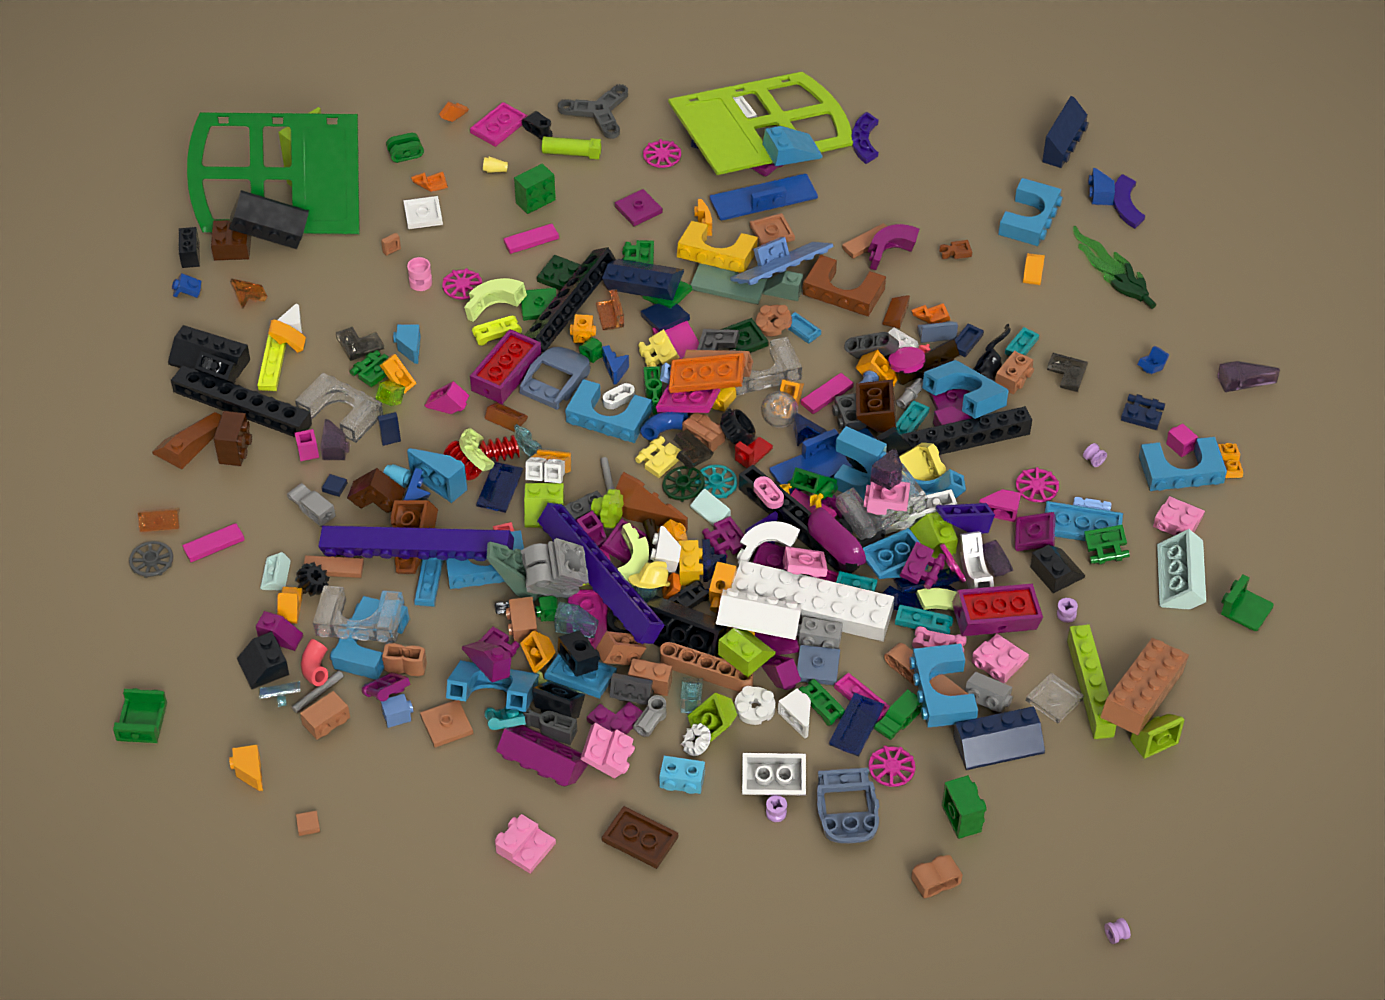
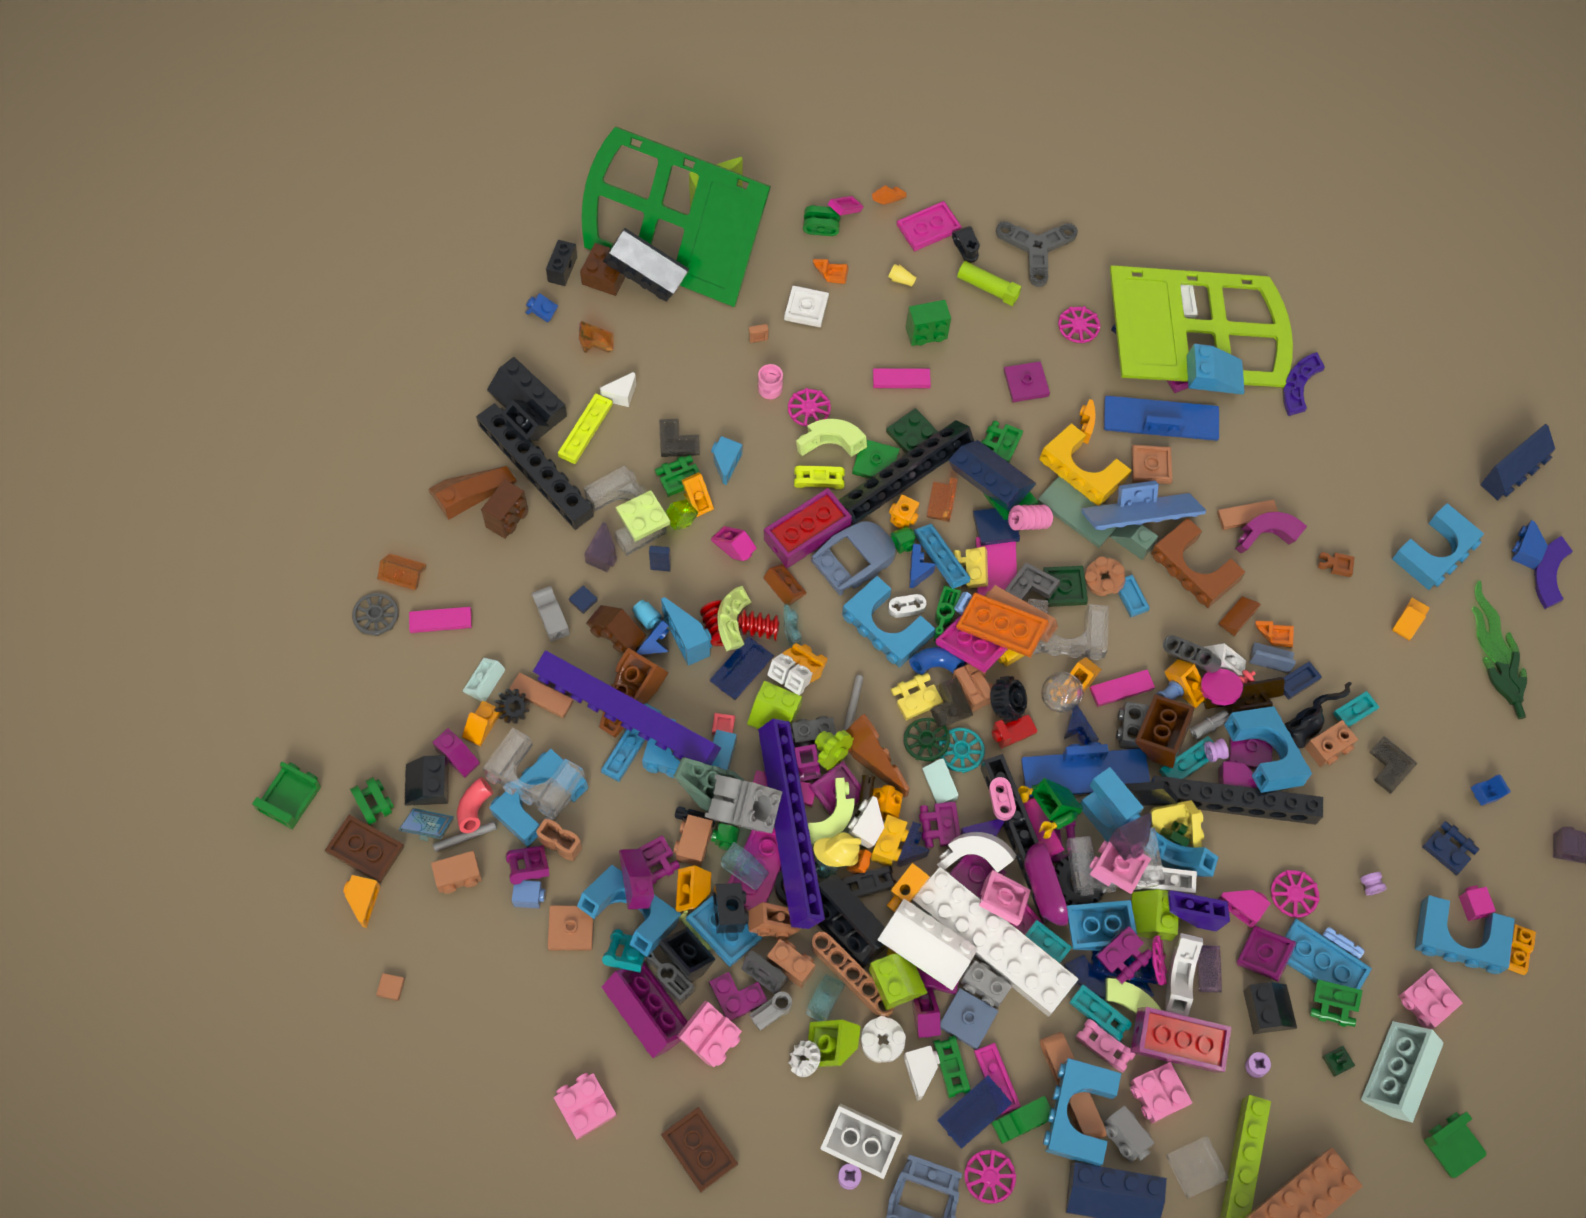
camera: 20 degrees right, 15 degrees up
(220, 692) = (383, 804): none -> green brick
(231, 729) = (364, 848): none -> reddish brown plate
(284, 333) = (609, 404): light orange slope -> none
(306, 445) = (573, 544): dark pink brick -> none
(358, 402) = (643, 515): none -> yellowish green plate
(420, 129) = (845, 205): none -> dark pink tile
(628, 347) = (942, 556): none -> dark azure tile
(682, 774) = (772, 1095): medium azure brick -> none
(691, 297) = (1030, 517): none -> bright pink piece
(922, 472) = (1176, 833): none -> dark green tile
(925, 404) = (1216, 750): none -> lavender wheel
(1129, 585) = (1338, 1061): none -> dark green tile

